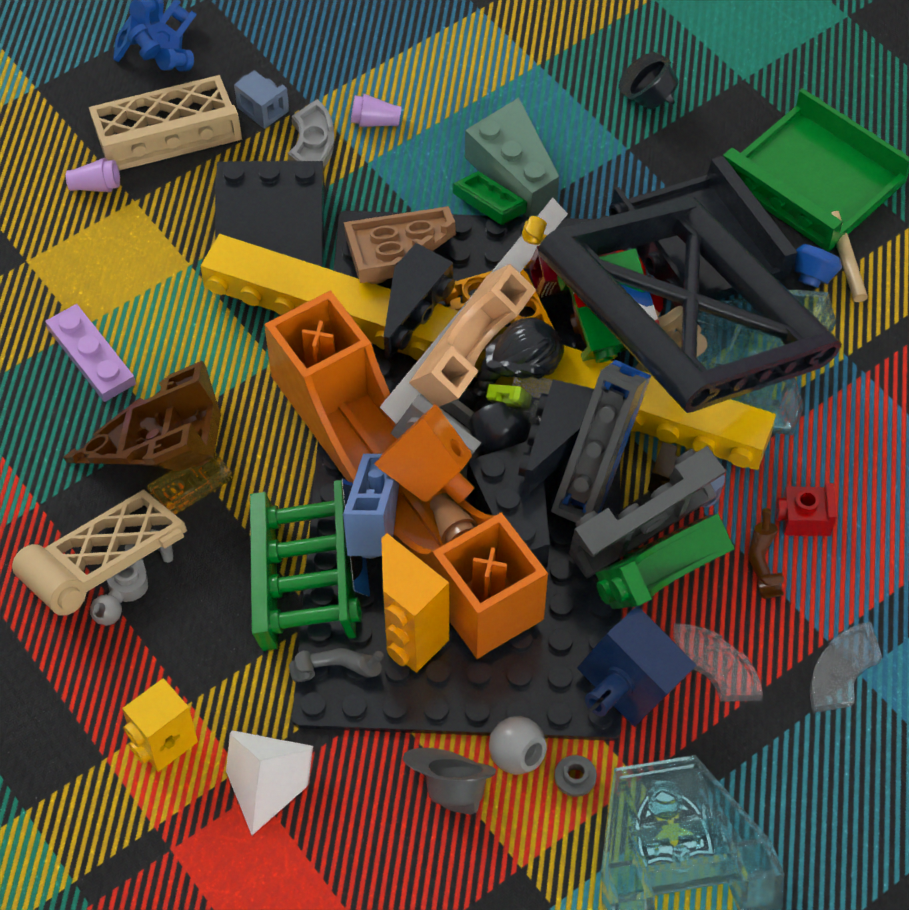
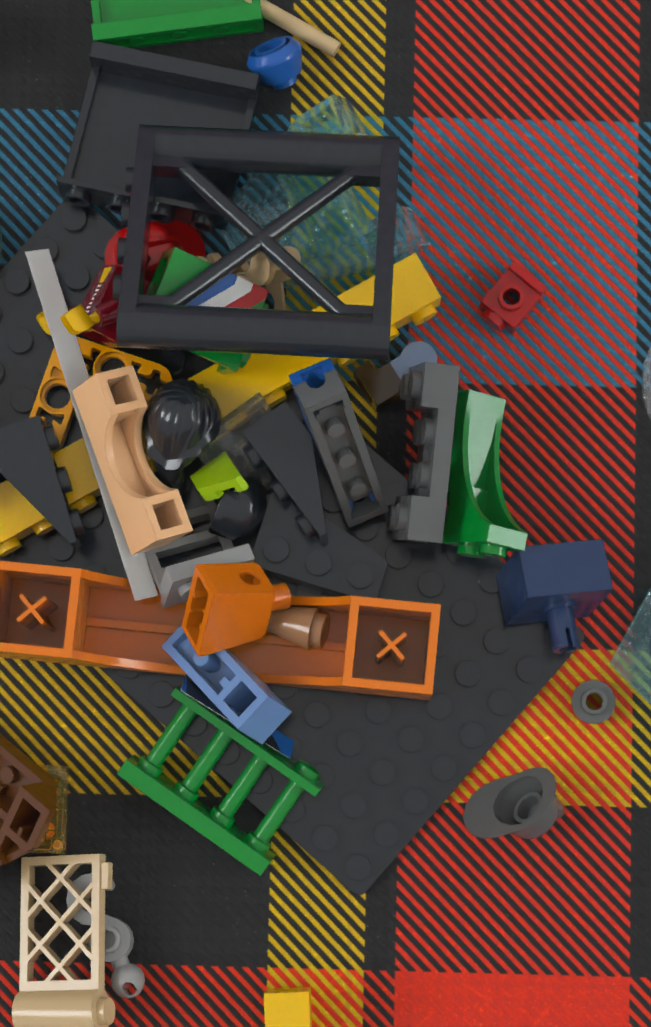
camera: 45 degrees left, 25 degrees up
(266, 774) = (392, 956): white slope -> none
(305, 662) = (355, 801): dark grey piece -> none
(413, 606) = (358, 734): light orange slope -> none
(517, 745) = (534, 730): light grey piece -> none
(719, 662) = (584, 495): clear tile -> none
(762, 538) = (501, 354): reddish brown piece -> none

